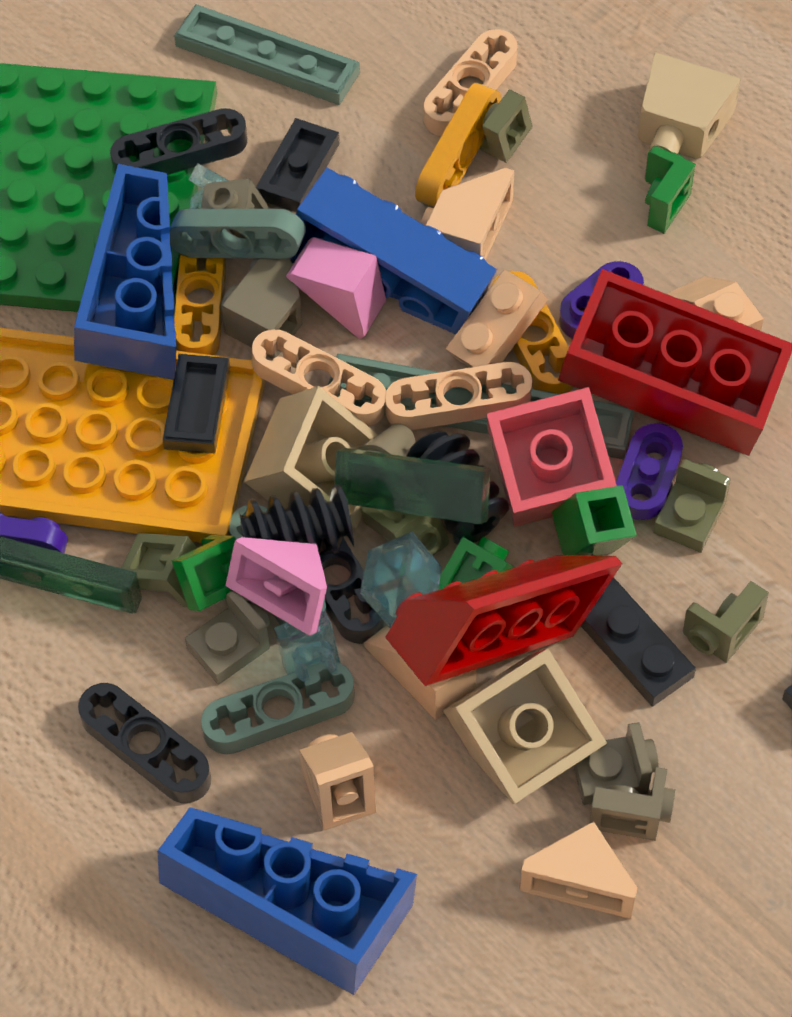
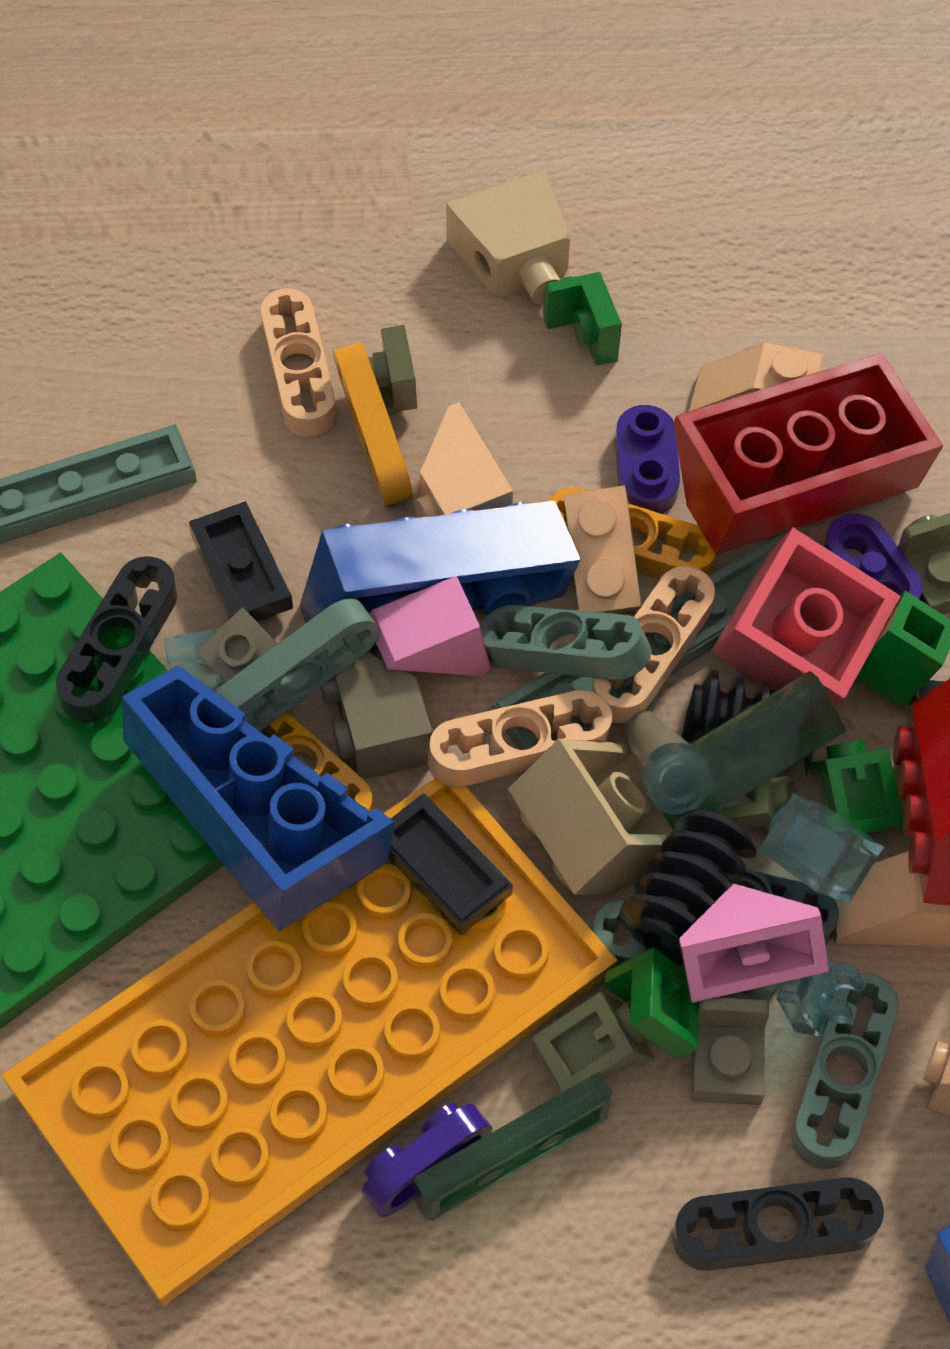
camera: 50 degrees left, 0 degrees up
(351, 461) = (676, 778): none -> clear light blue tile
(405, 349) = (604, 645): none -> sand green beam

